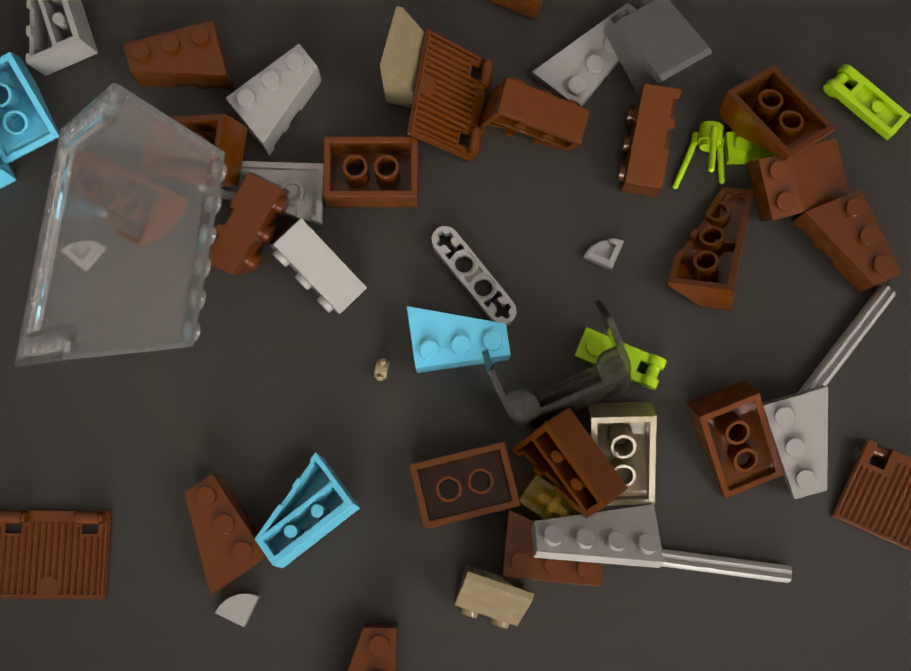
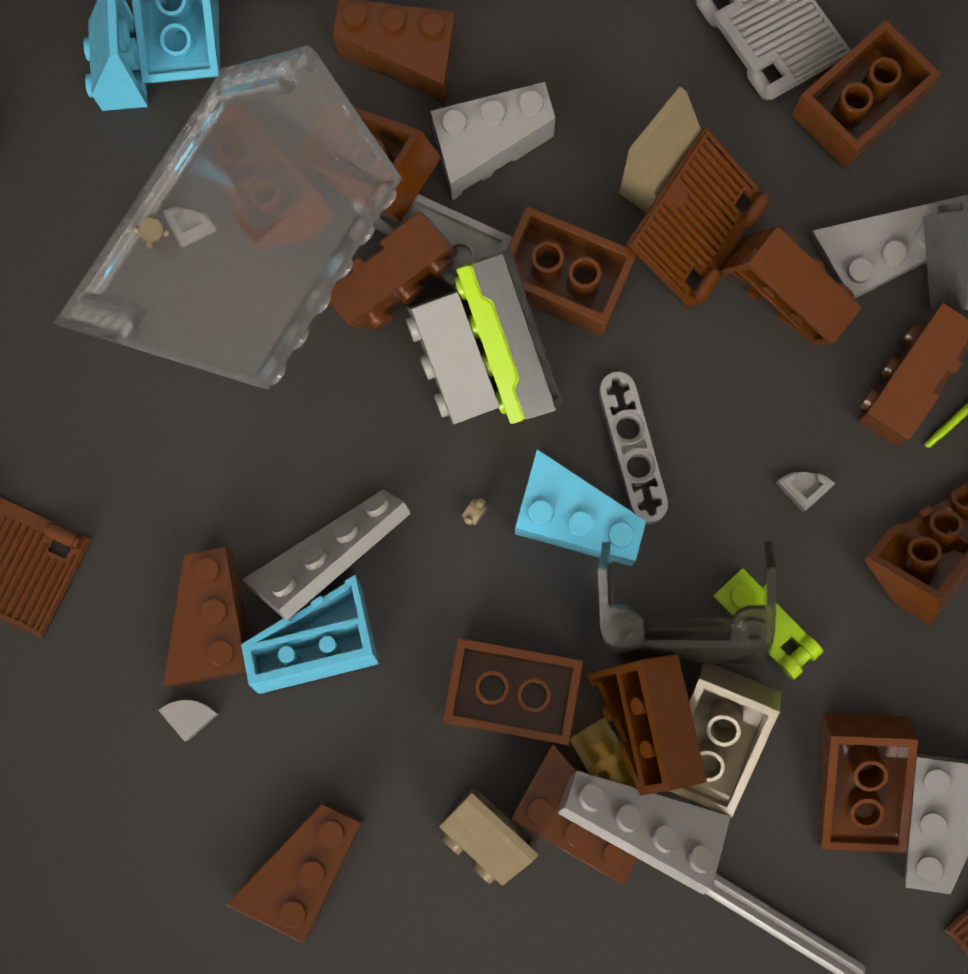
camera: 30 degrees right, 0 degrees up
(58, 268) = (151, 231): none -> dark tan piece
(282, 456) = (315, 562): none -> light grey wing
(351, 234) = (509, 336): none -> piece

